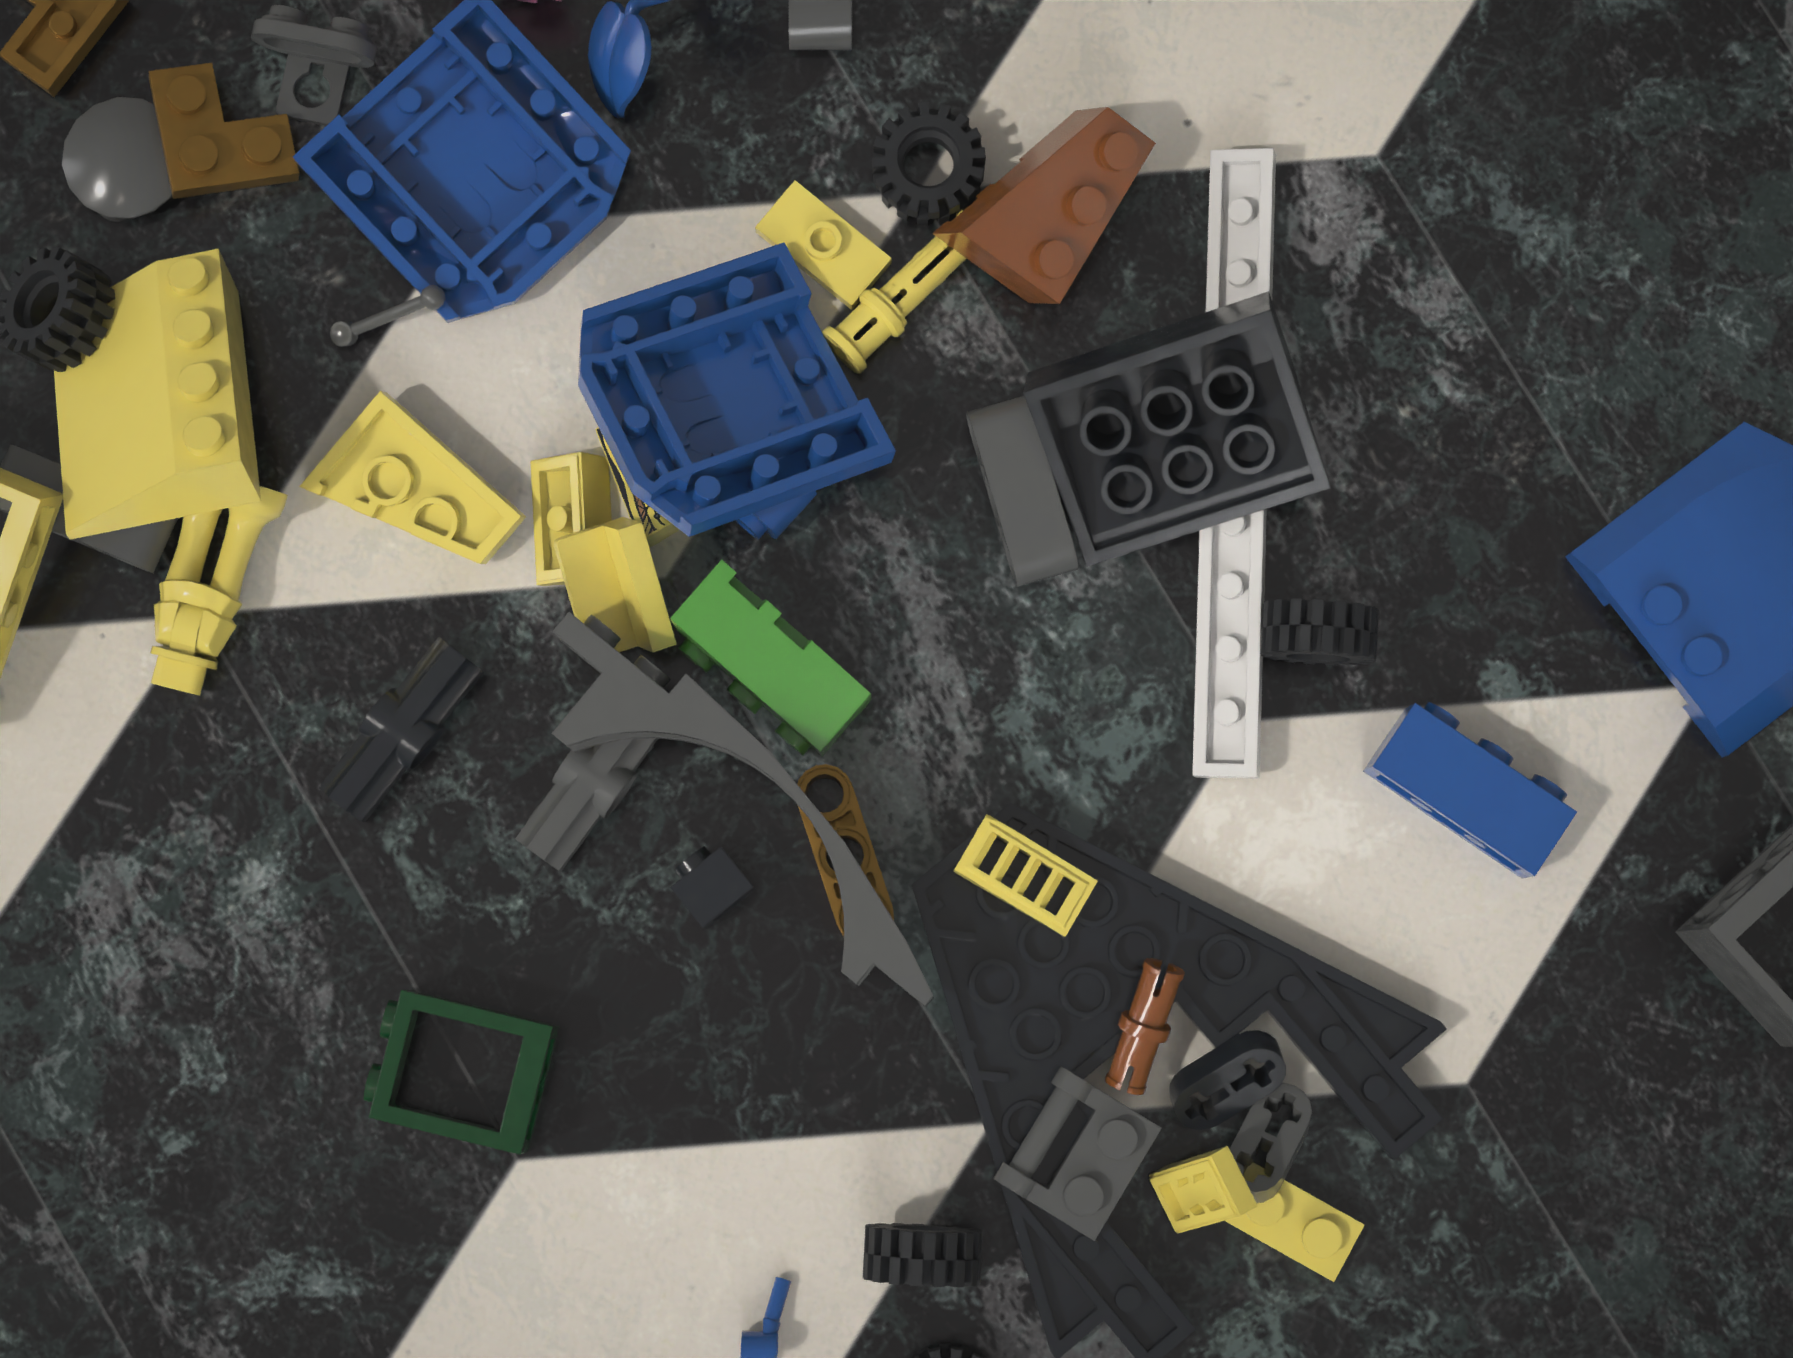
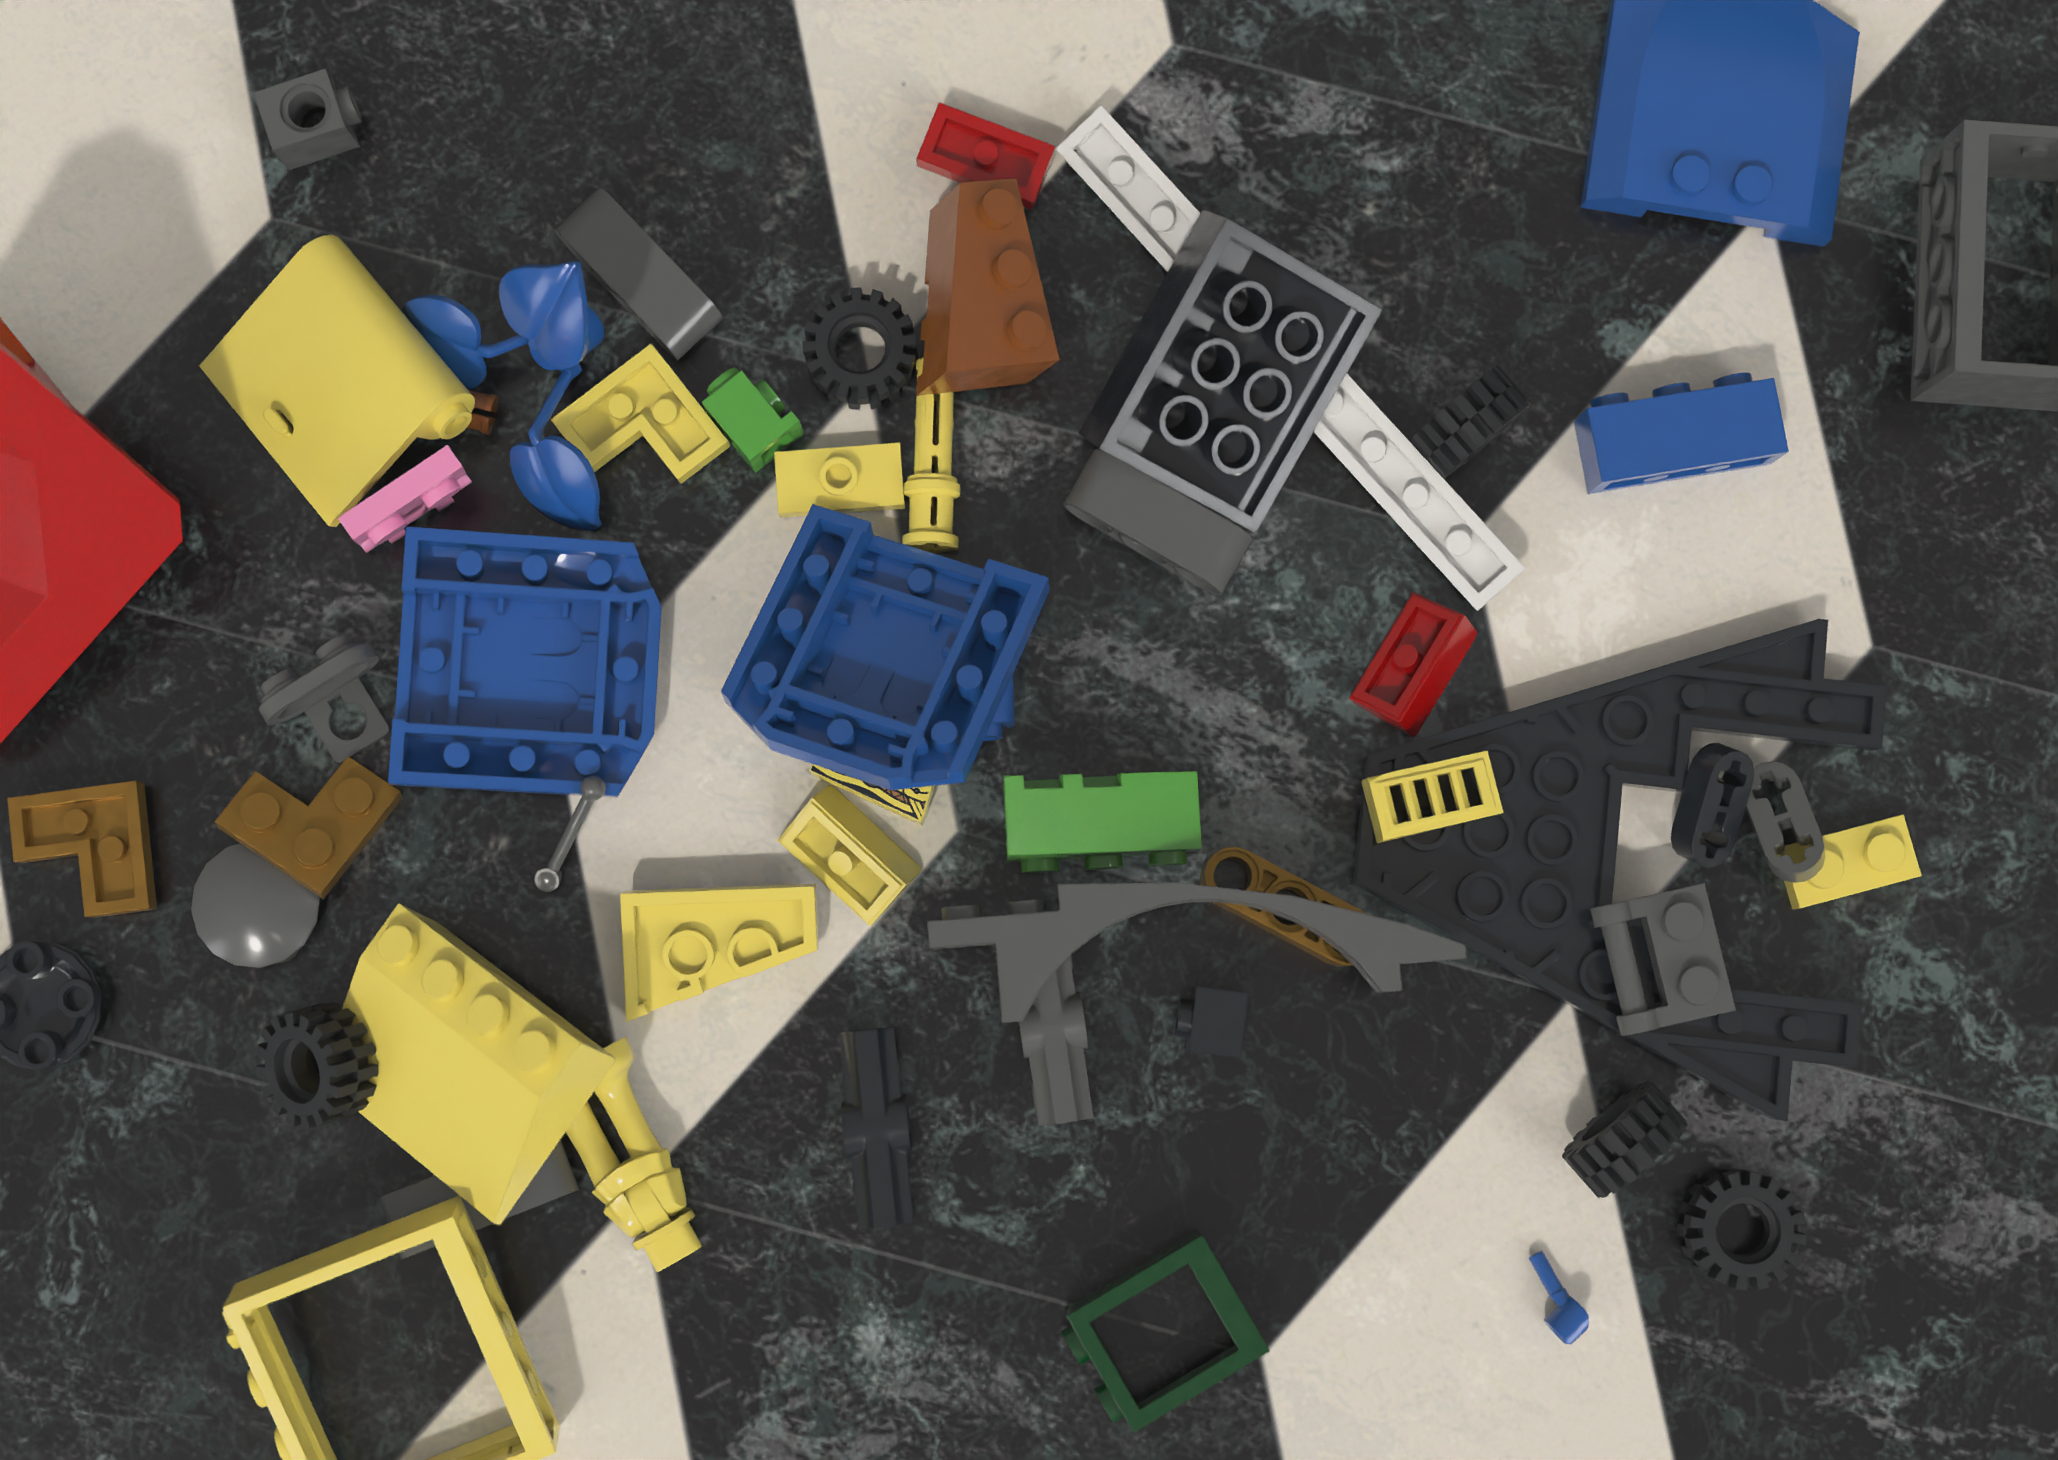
camera: 50 degrees left, 0 degrees up
(615, 580) = (933, 867): light yellow panel -> none
(735, 55) = (648, 402): none -> light yellow plate
(800, 139) = (751, 417): none -> bright green brick
(1111, 772) = (1414, 664): none -> red slope
(1144, 1026) = (1622, 822): dark orange pin -> none
(1157, 106) = (980, 150): none -> red plate
(1202, 1190) = (1776, 899): light yellow plate -> none

